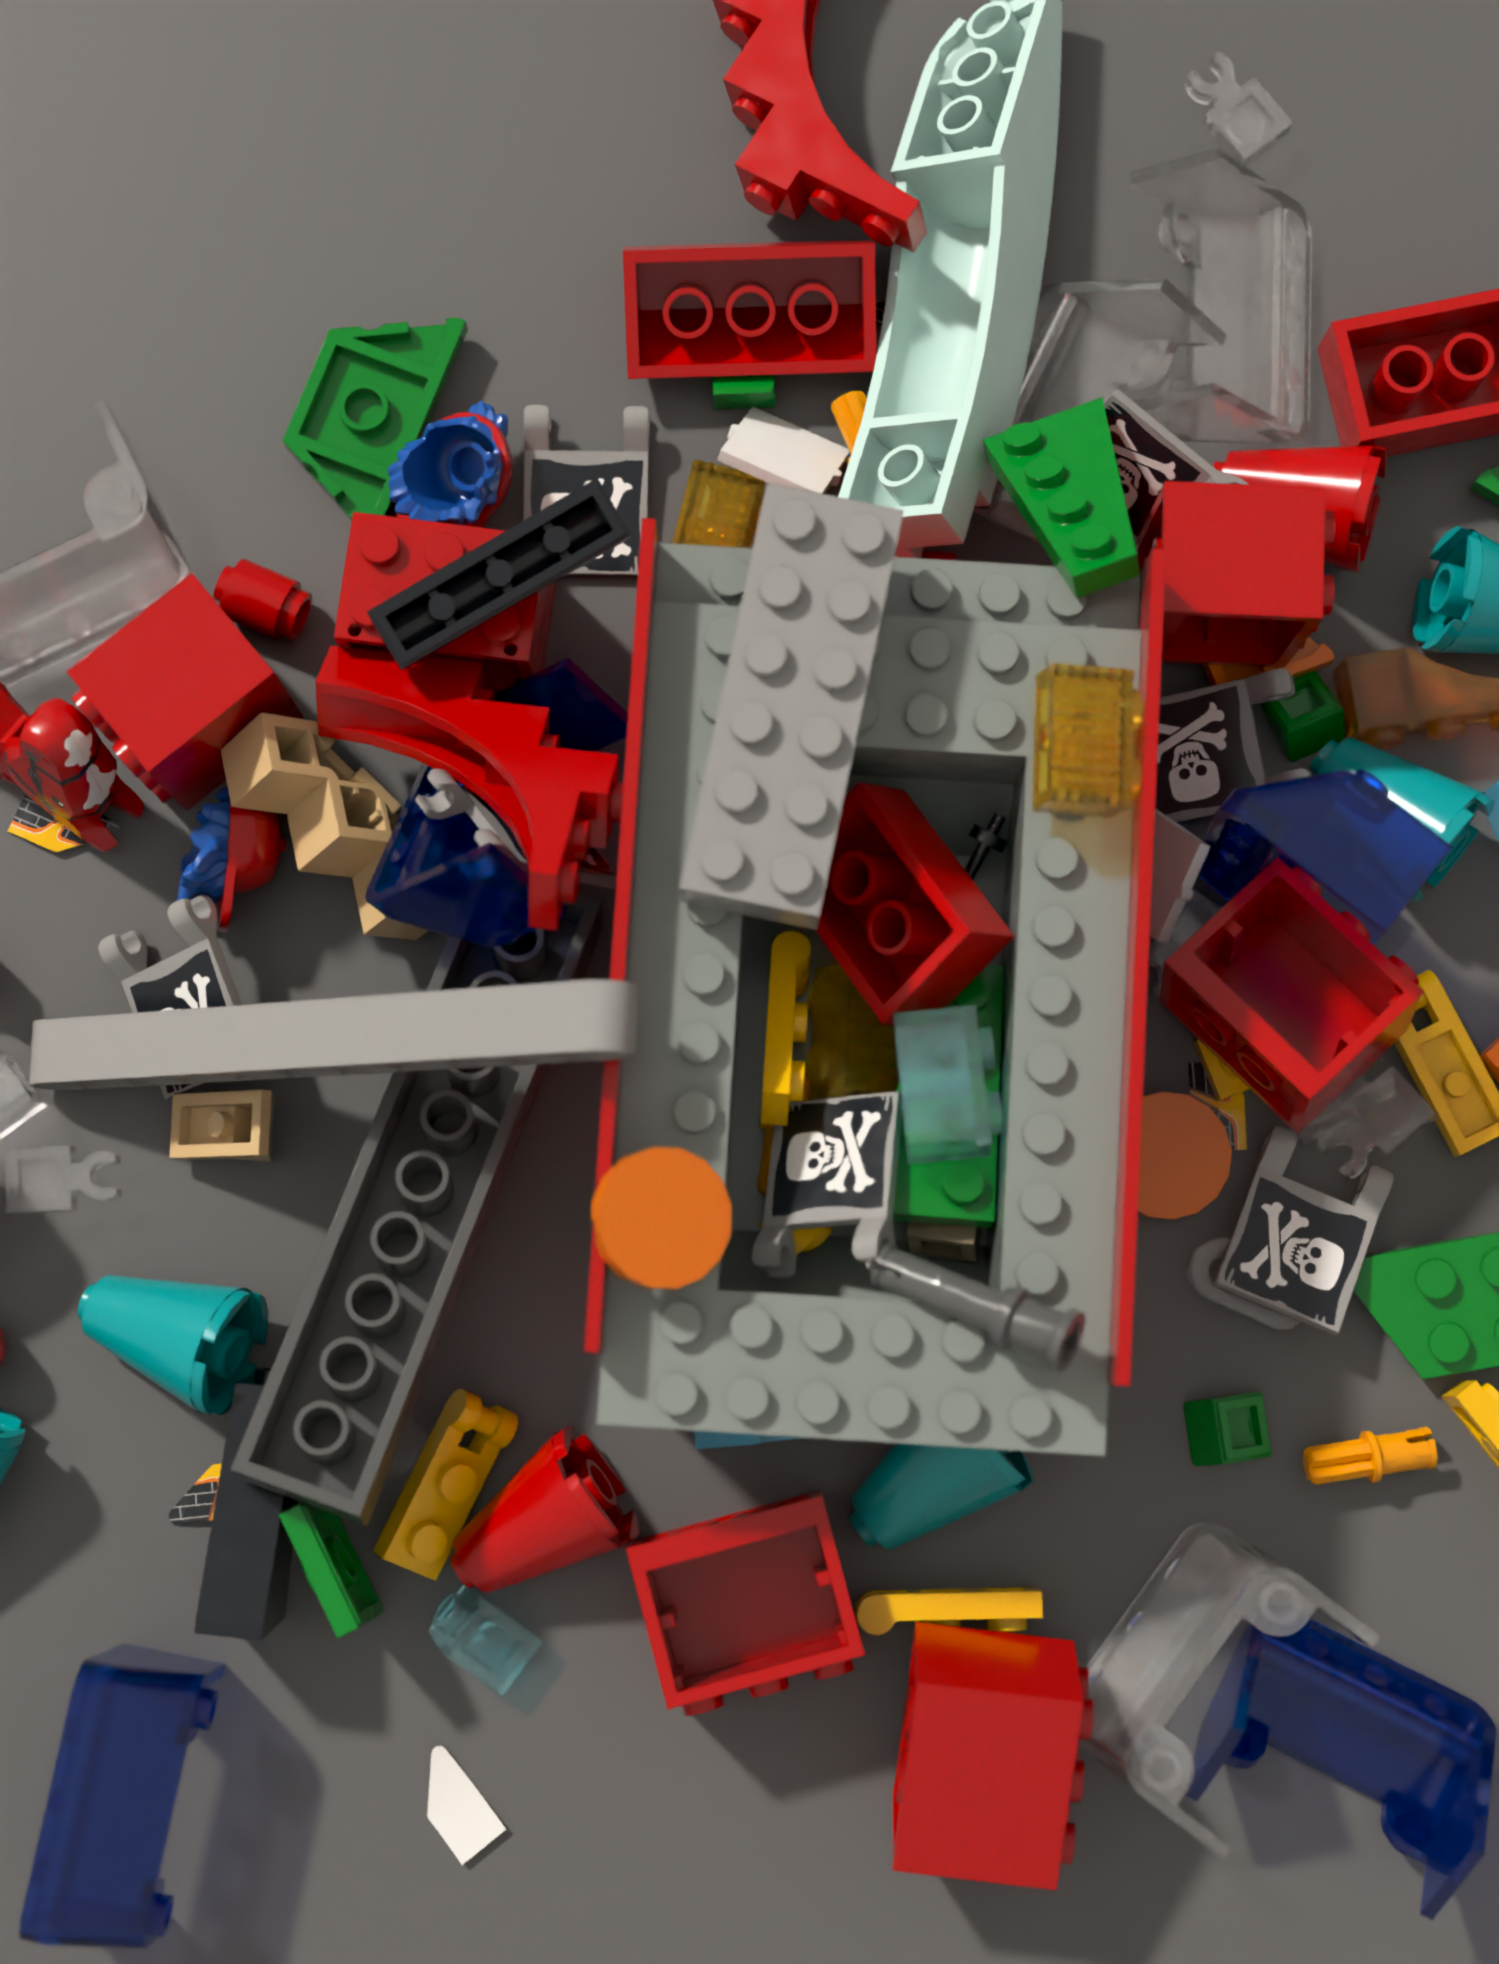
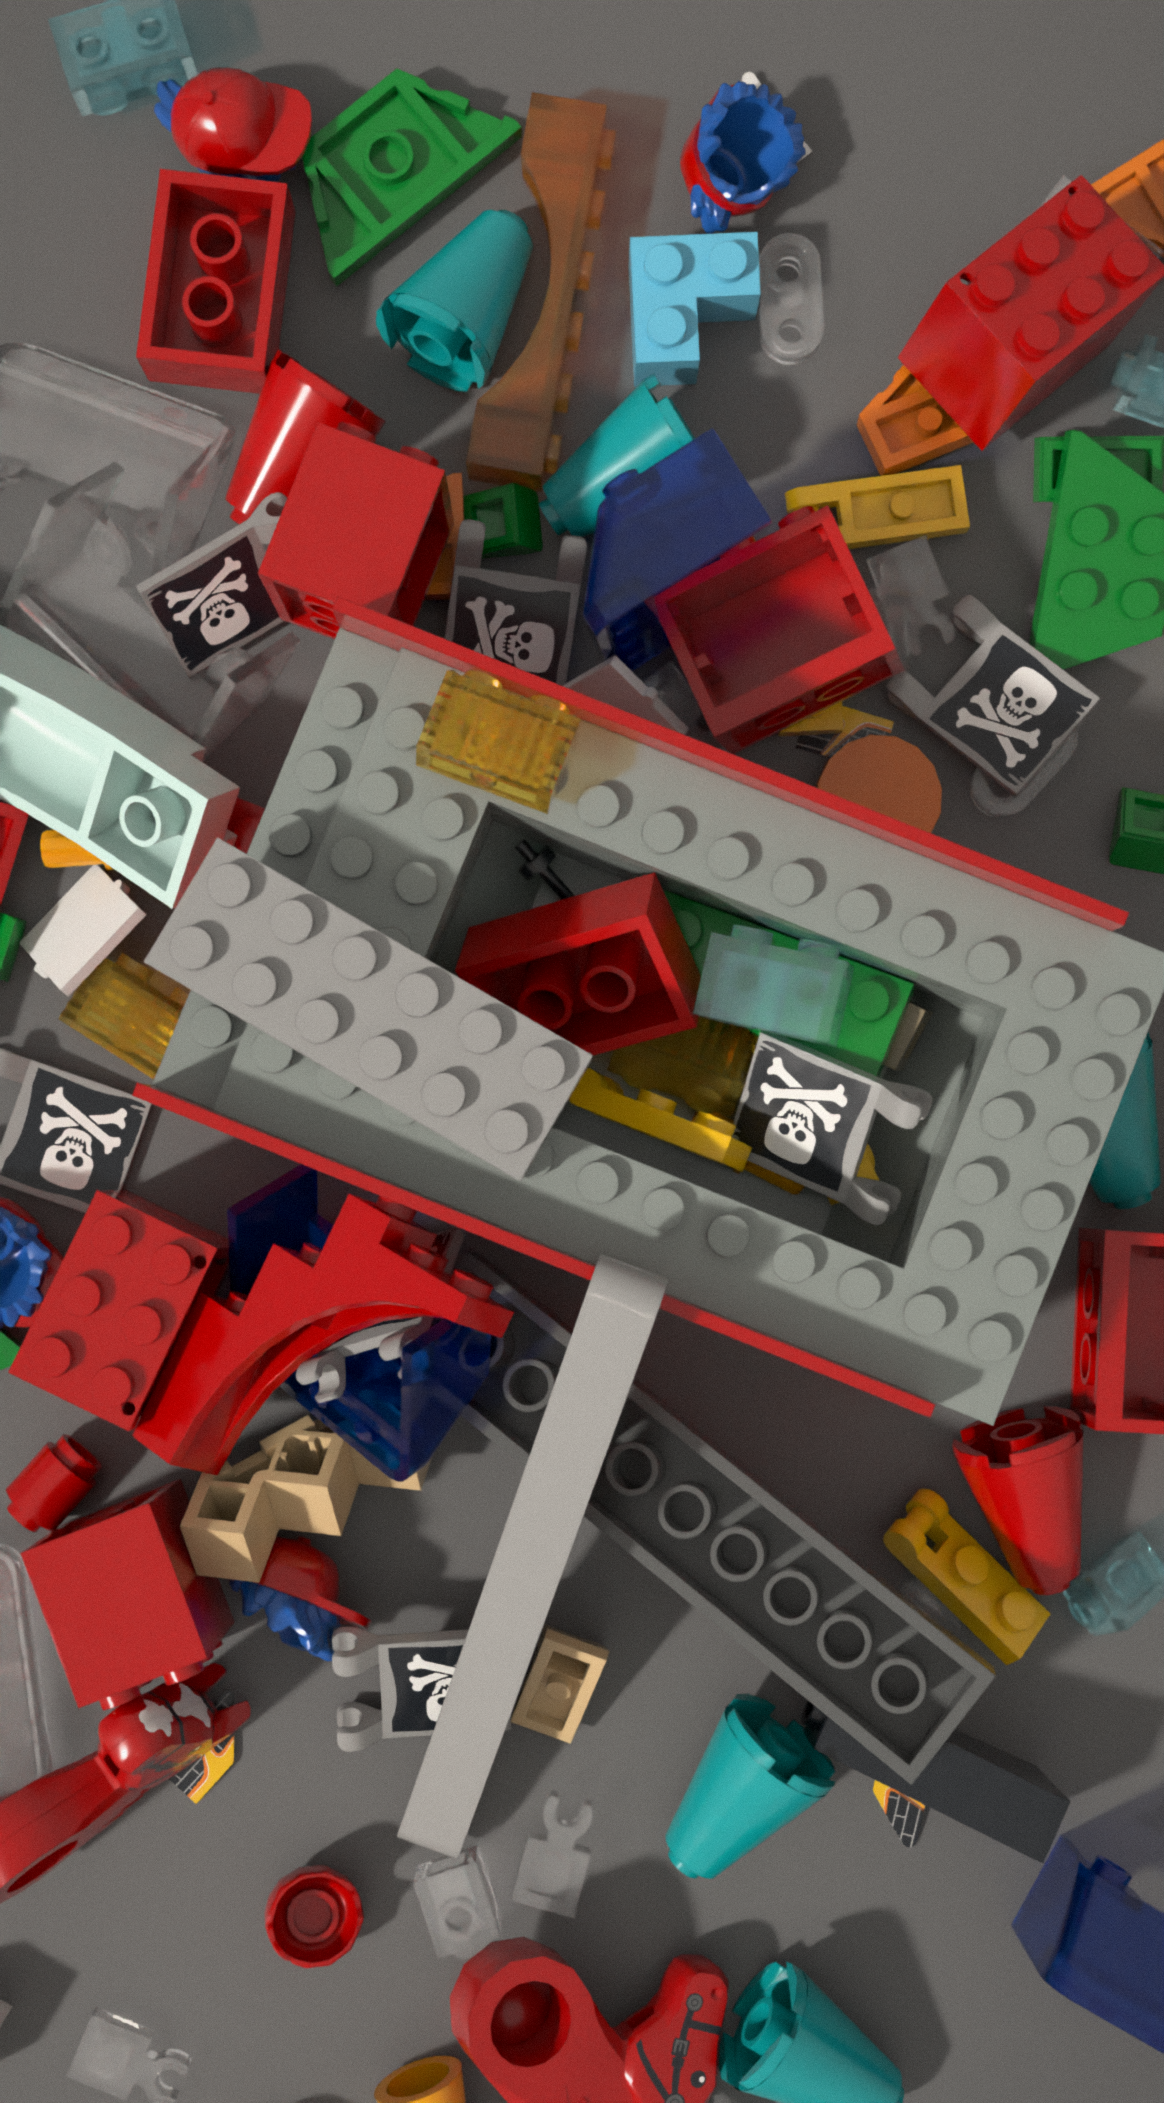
camera: 75 degrees left, 5 degrees up
(332, 1567) = (1022, 1710): green plate -> none
(498, 574) = (127, 1250): black brick -> none
(661, 1218) = (826, 1302): orange tile -> none
(1007, 1316) = (1024, 1005): dark grey pin -> none
(1070, 494) = (234, 668): green wing -> none

